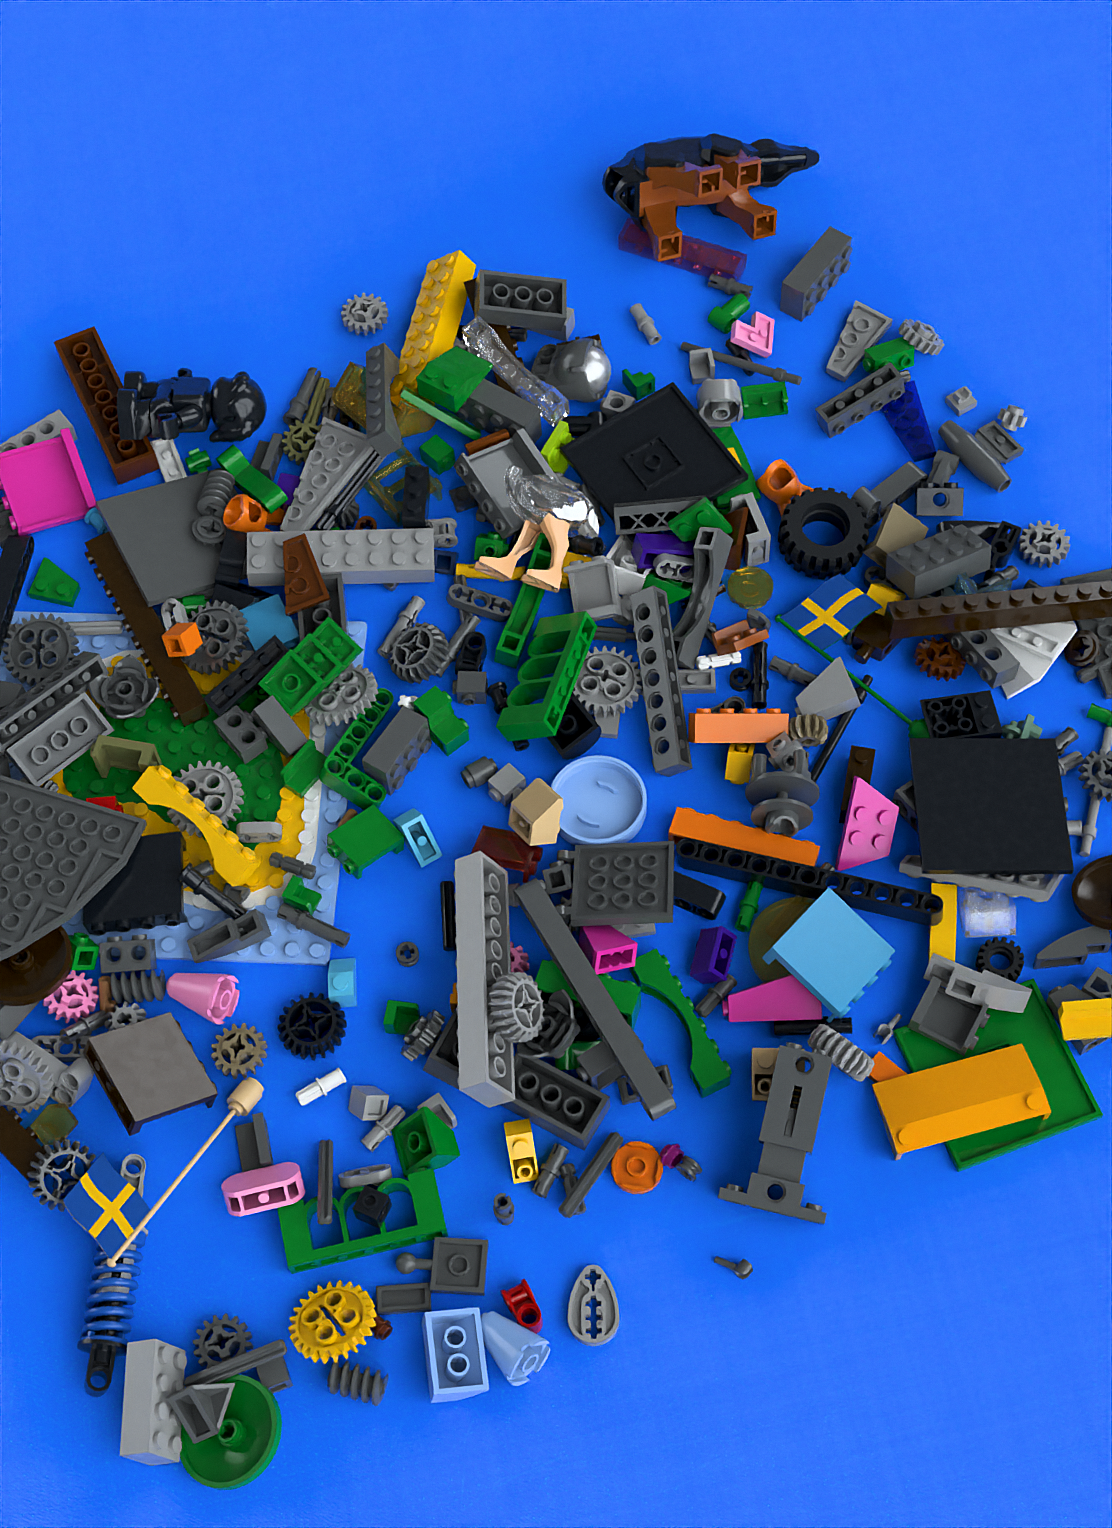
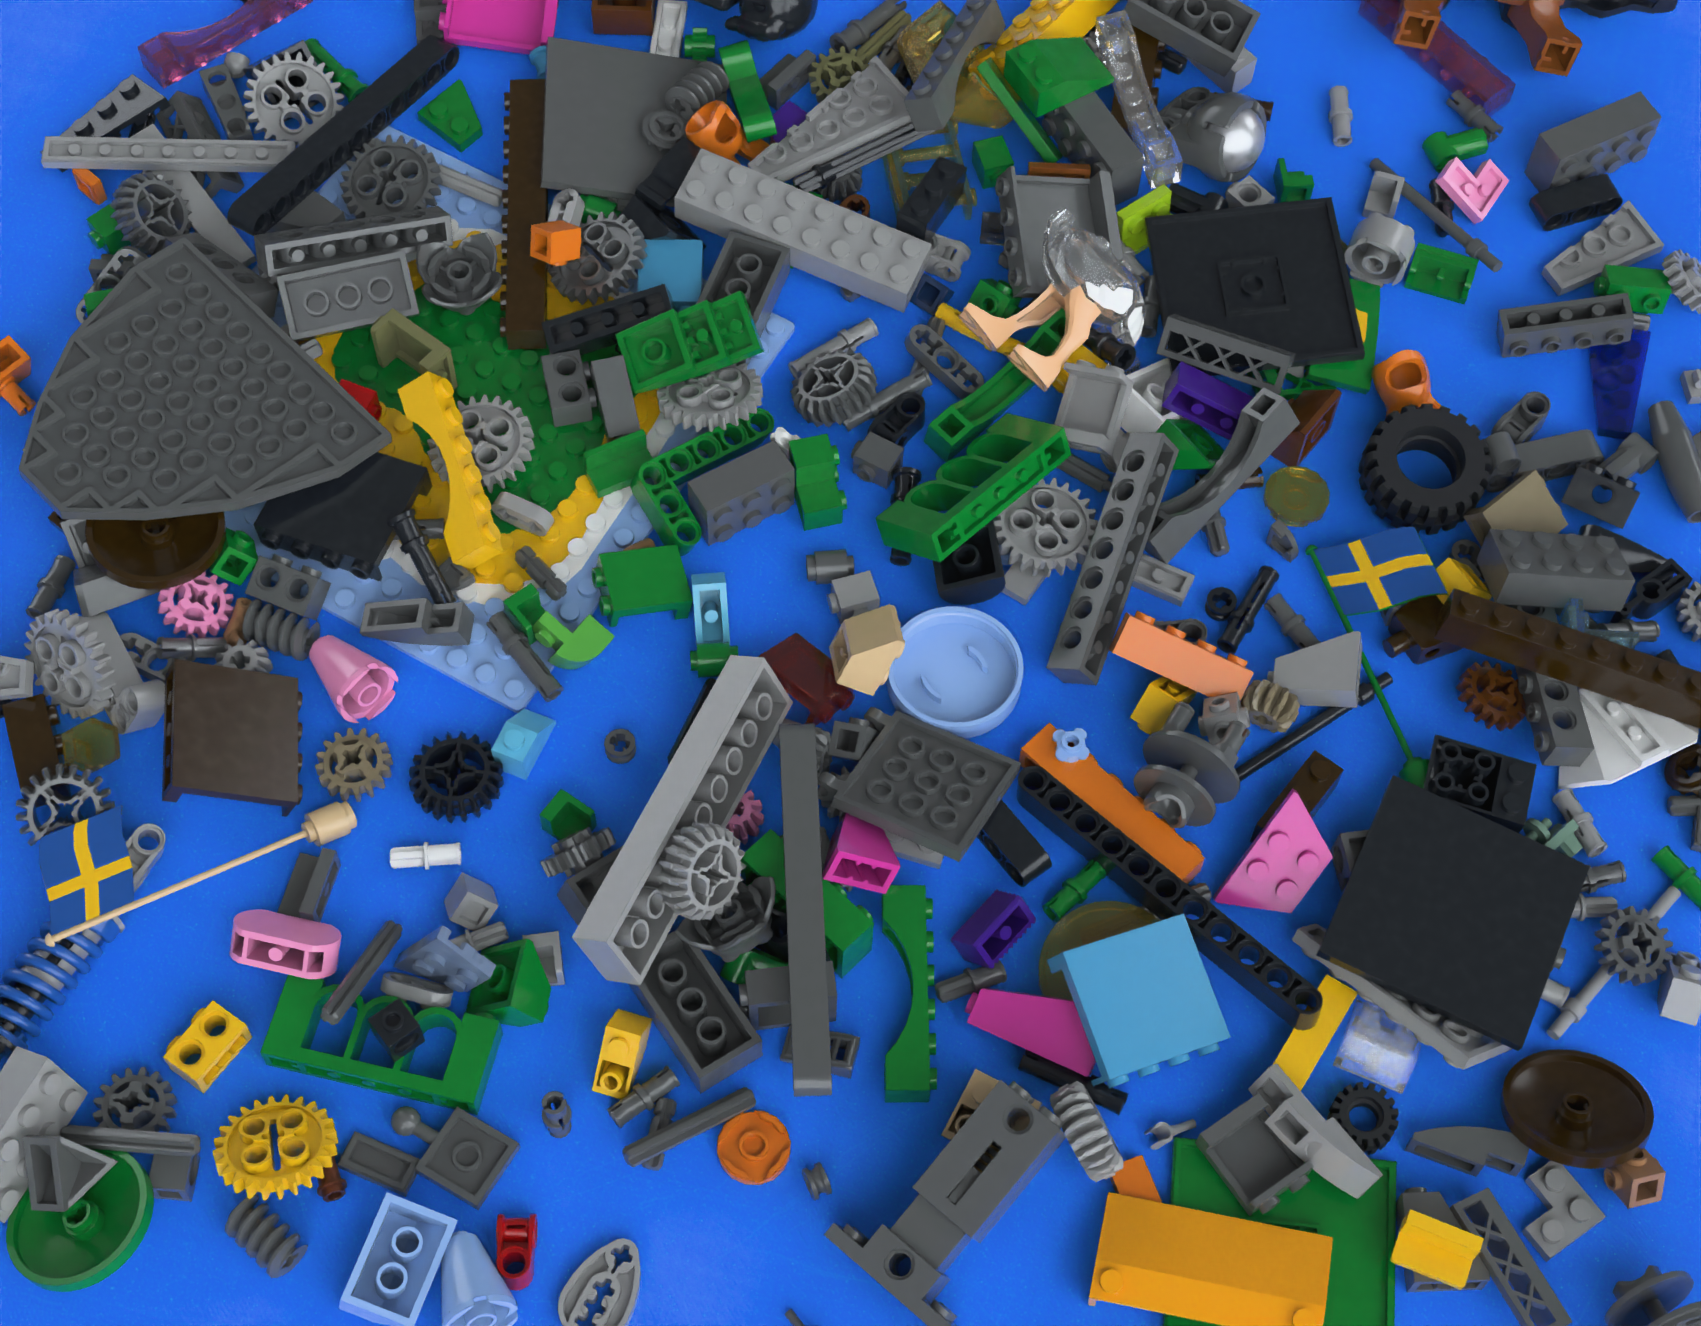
camera: 20 degrees right, 0 degrees up
(255, 1280) = (215, 1051): none -> yellow brick
(302, 576) = (738, 231): reddish brown wing -> none
(343, 903) = (572, 648): none -> bright green brick
(377, 1147) = (445, 962): none -> sand blue wing
(438, 868) = (711, 658): none -> green brick
(671, 1155) = (803, 1154): magenta plate -> none
(675, 562) = (1211, 419): light grey beam -> none
(699, 821) = (1071, 754): none -> light blue plate
(701, 514) = (1271, 372): green wing -> none
(715, 661) = (1205, 566): white axle -> none
(737, 637) = (1242, 548): dark orange bracket -> none
(758, 536) = (1334, 440): light grey panel -> none
(823, 315) = (1575, 202): none -> black beam
(864, 474) = (1521, 422): none -> dark grey piece
(1024, 708) = (1586, 833): none -> light grey pin

